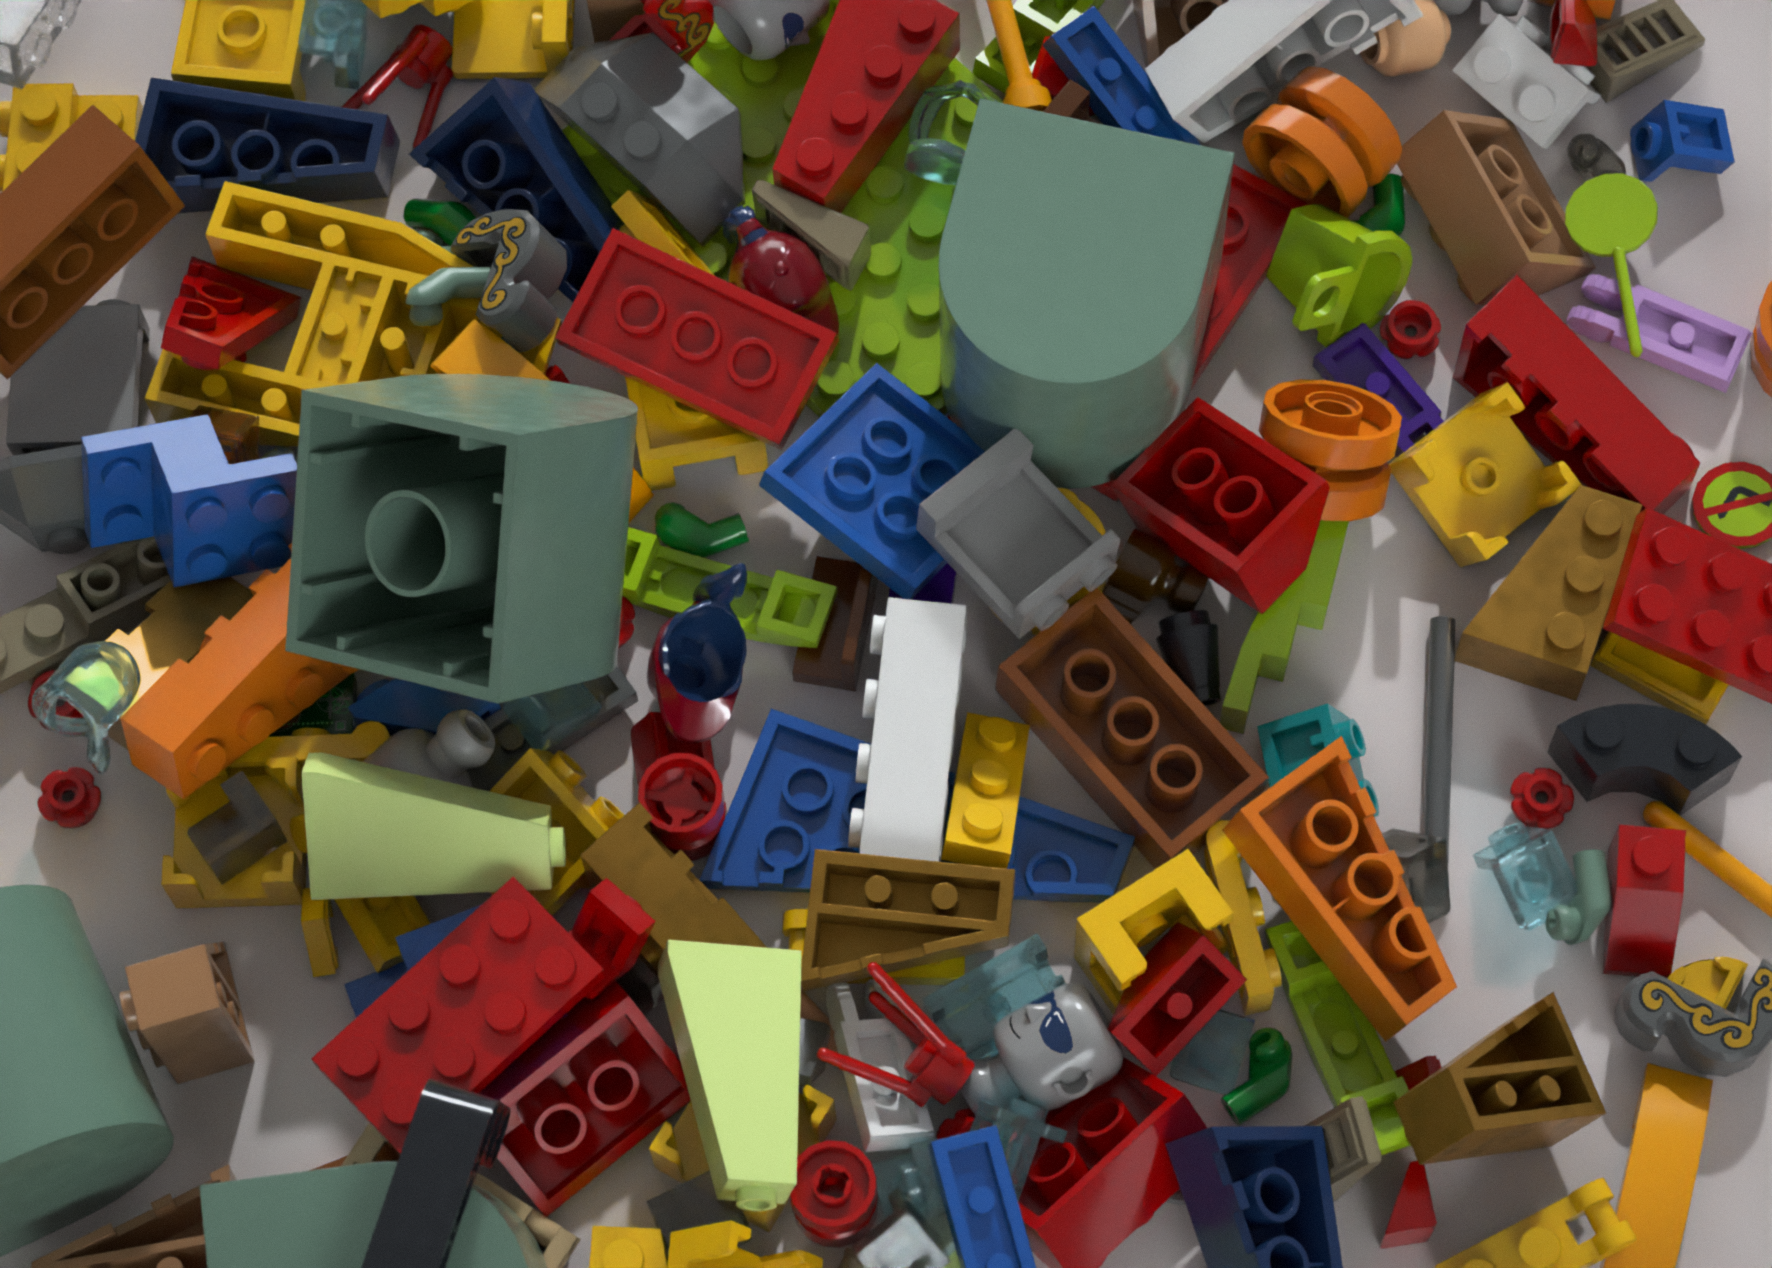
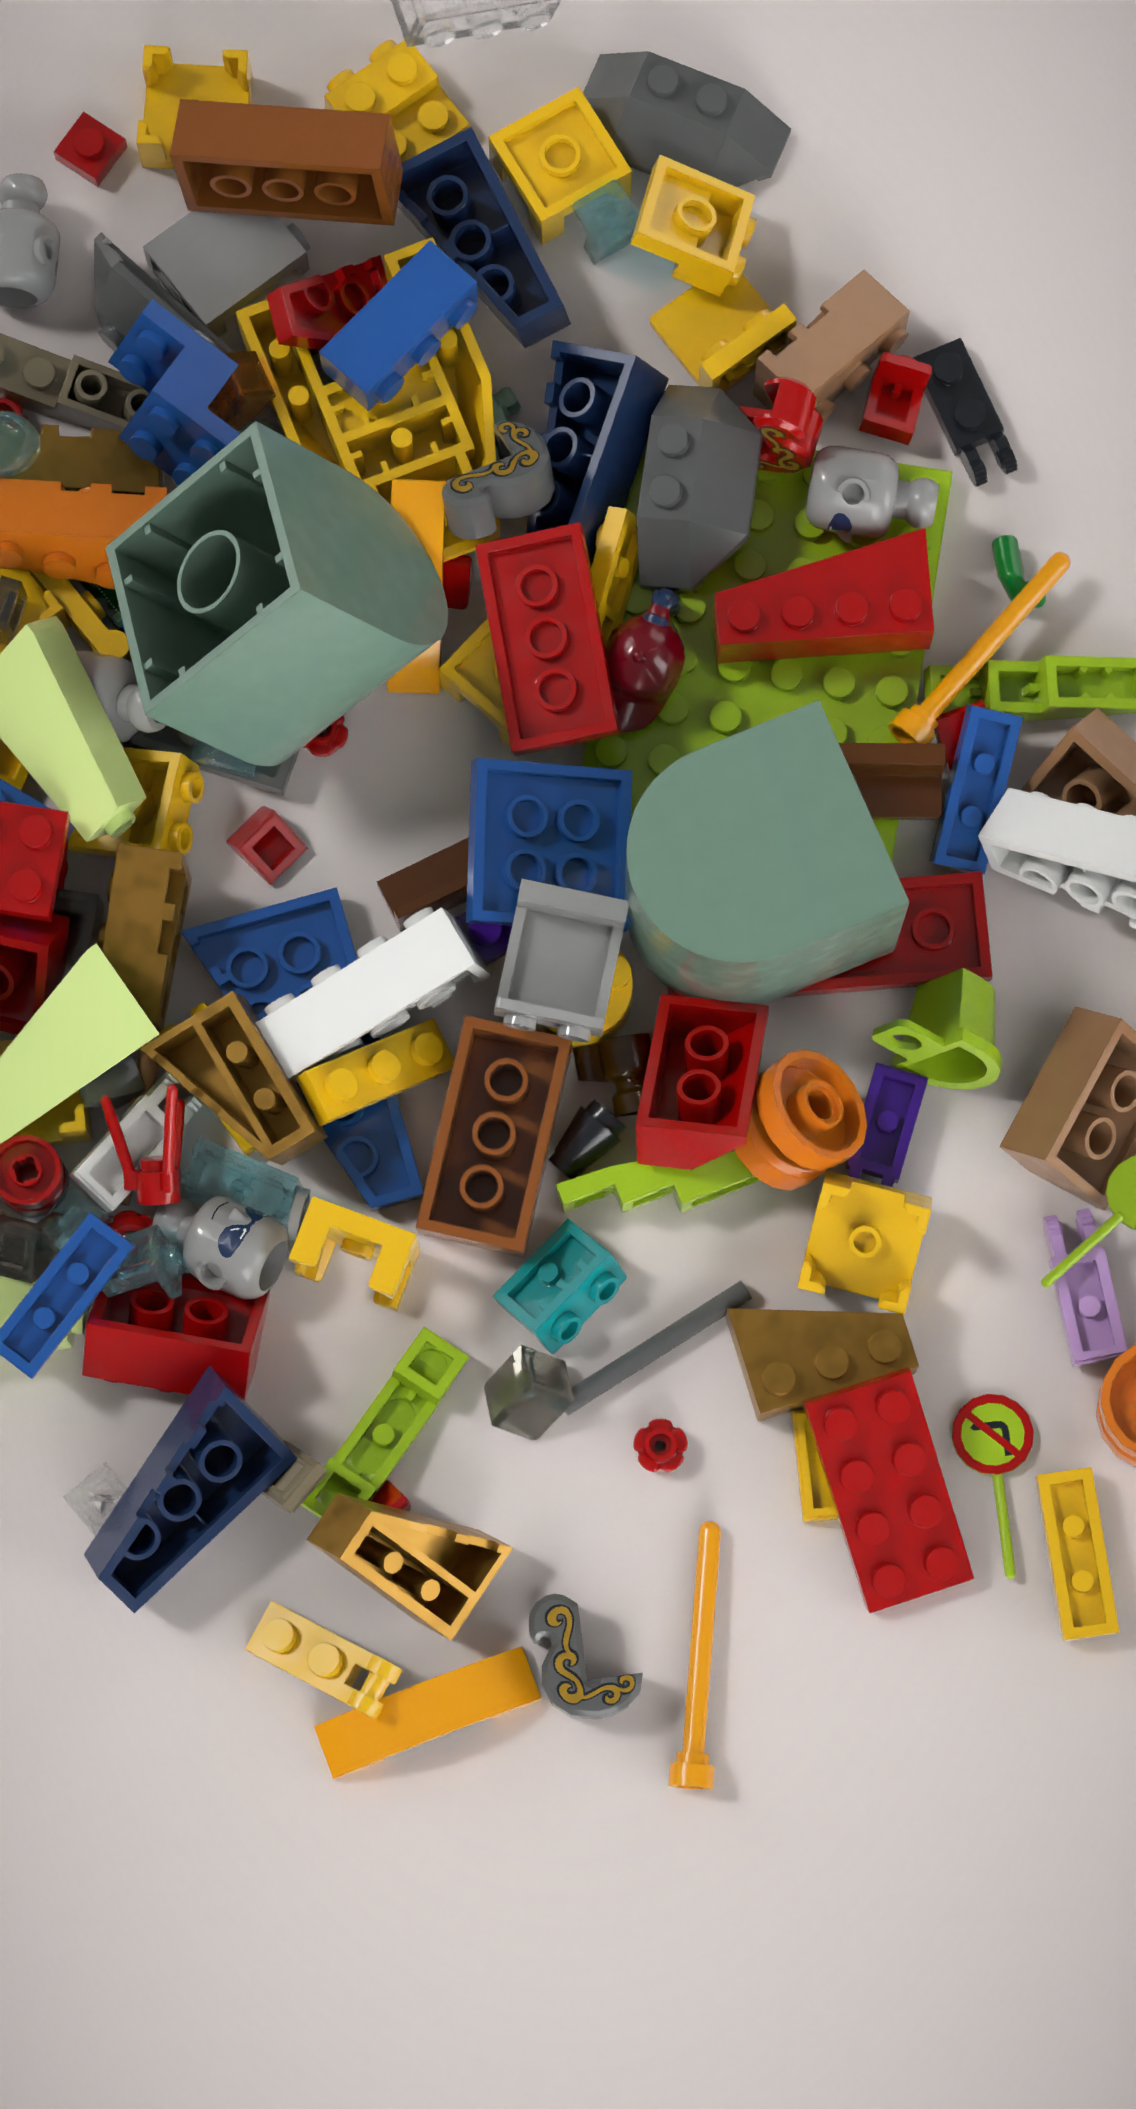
camera: 50 degrees right, 10 degrees up
(291, 258) = (400, 327): none -> blue brick
(415, 62) = (638, 287): red plant -> none
(441, 216) = (531, 397): green arm -> none
(441, 286) = (455, 440): sand green arm -> none
(611, 931) = (81, 902): red bracket -> none
(685, 803) = (221, 880): red wheel -> none
(692, 535) = (427, 744): green arm -> none
(700, 659) = (328, 817): dark blue hair -> none
(771, 610) = (396, 787): lime slope -> none
(835, 239) = (702, 675): dark tan slope -> none
(932, 157) = (819, 686): clear light blue piece -> none
(1065, 964) = (297, 1212): none -> light grey piece
(1174, 997) = (321, 1298): red slope -> none
(1215, 1053) = (320, 1349): clear light blue slope -> none
(1244, 945) = (422, 1301): yellow plate -> none
(1267, 1078) = (323, 1401): green arm -> none
(1323, 141) = (1037, 952): orange wheel -> none
(1344, 888) = (478, 1343): orange wedge -> none
(1388, 207) = (1025, 1037): green arm -> none
(1411, 315) = (956, 1101): red plate -> none
(1413, 1211) = (293, 1559): red slope -> none
(1528, 871) = (596, 1474): clear light blue bracket -> none
(1572, 401) = (967, 1271): red wedge -> none
(1589, 905) = (599, 1530): sand green arm -> none
(1644, 753) = (742, 1491): black brick -> none
(1646, 898) = (630, 1565): red slope -> none
(1711, 978) = (607, 1648): yellow tile -> none

